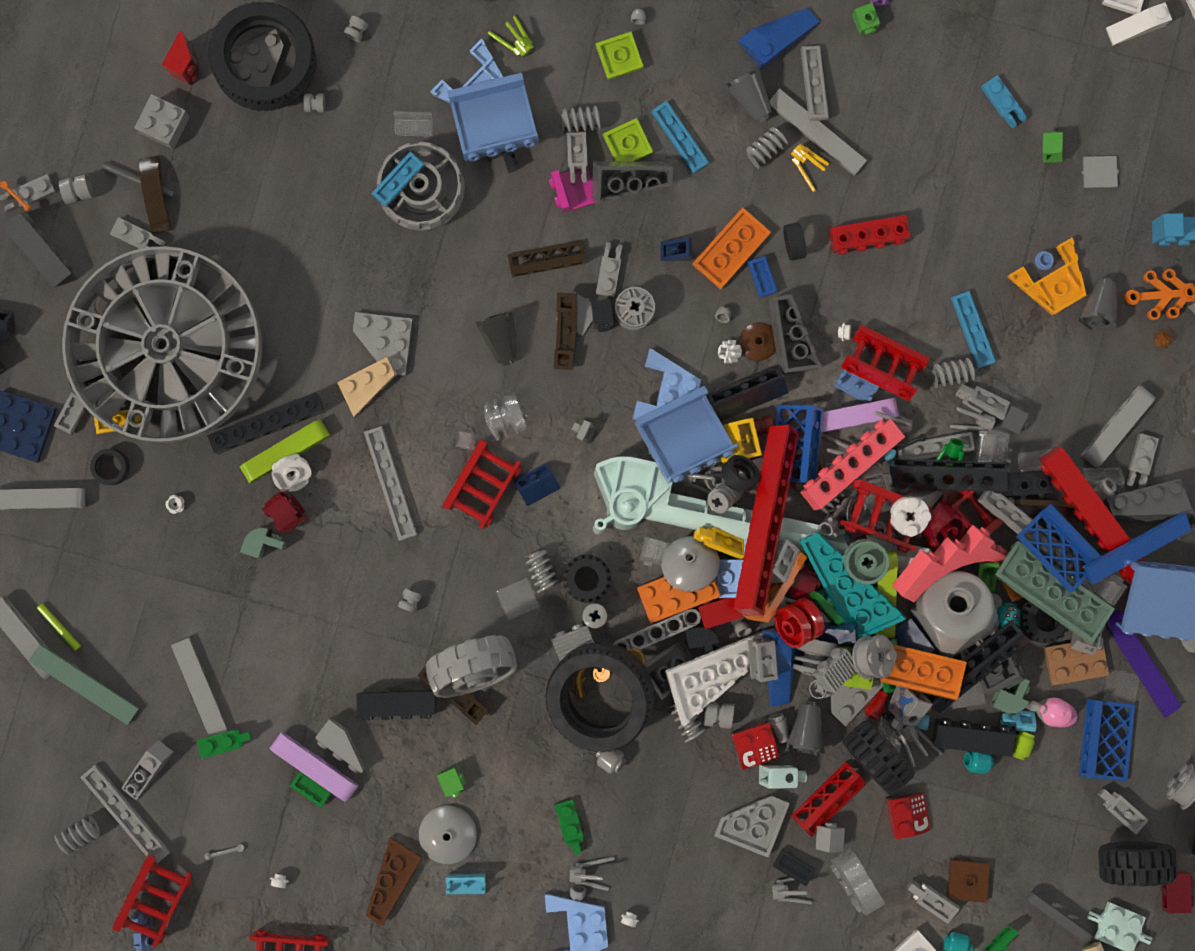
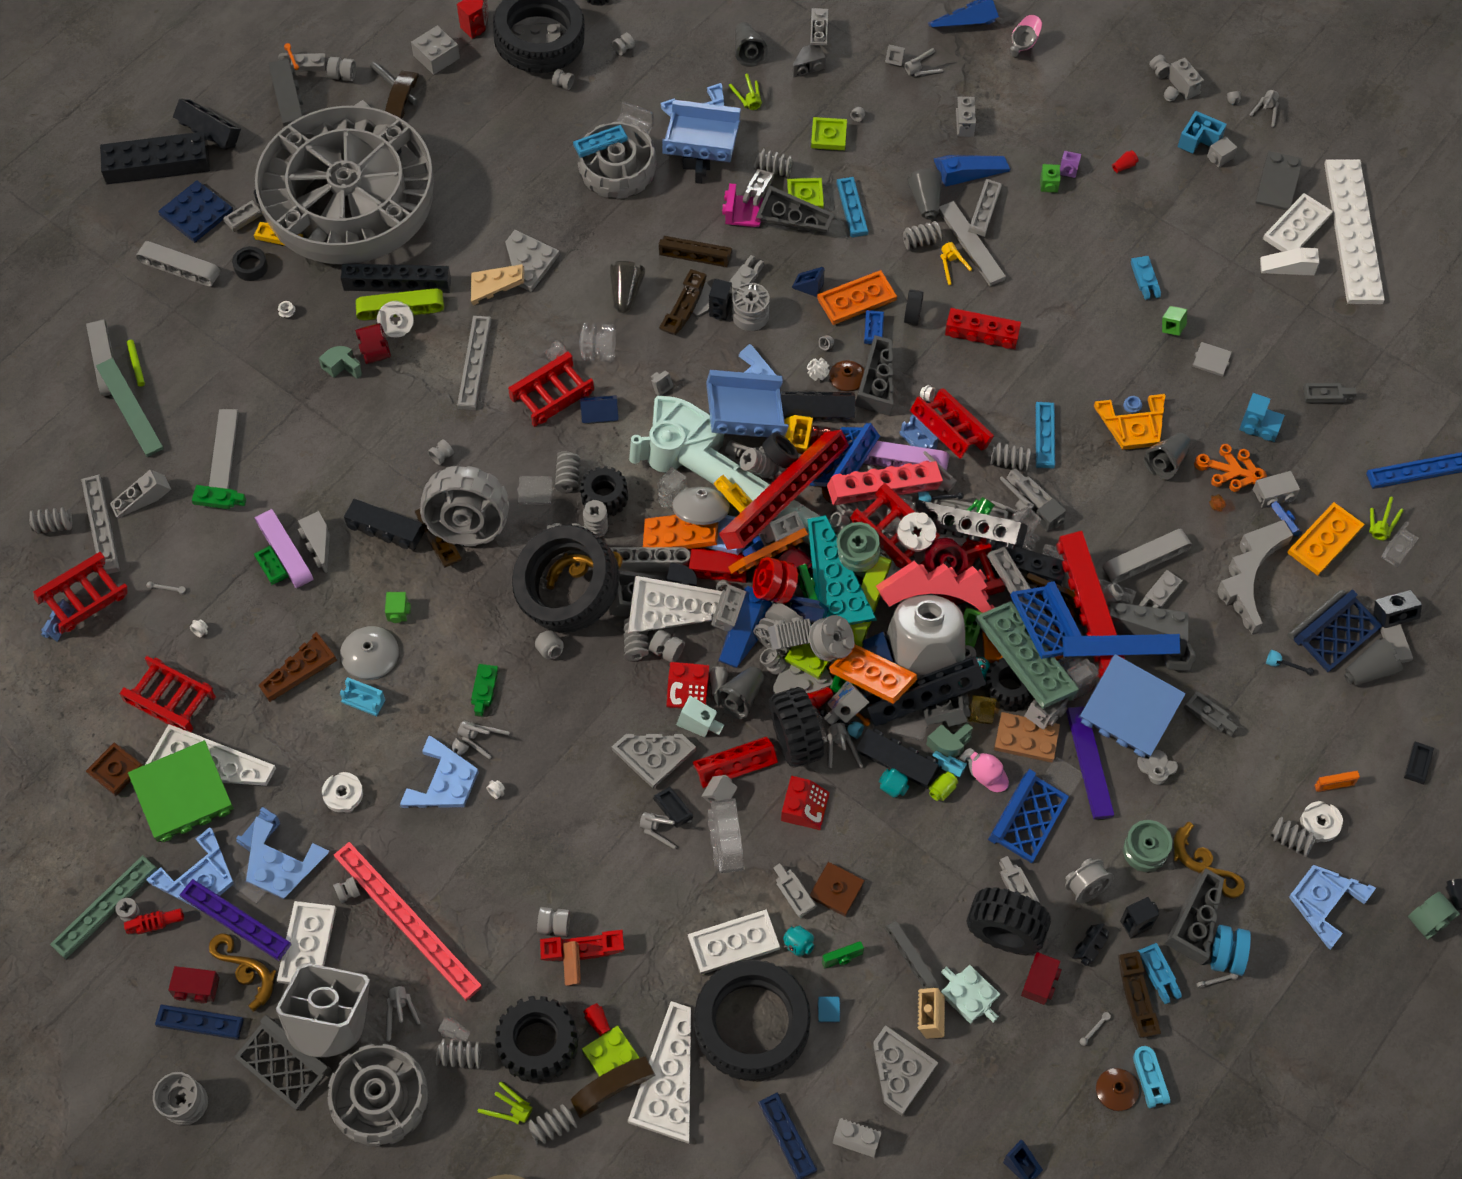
camera: 30 degrees right, 25 degrees down
(1028, 654) = (982, 709): none -> clear yellow panel

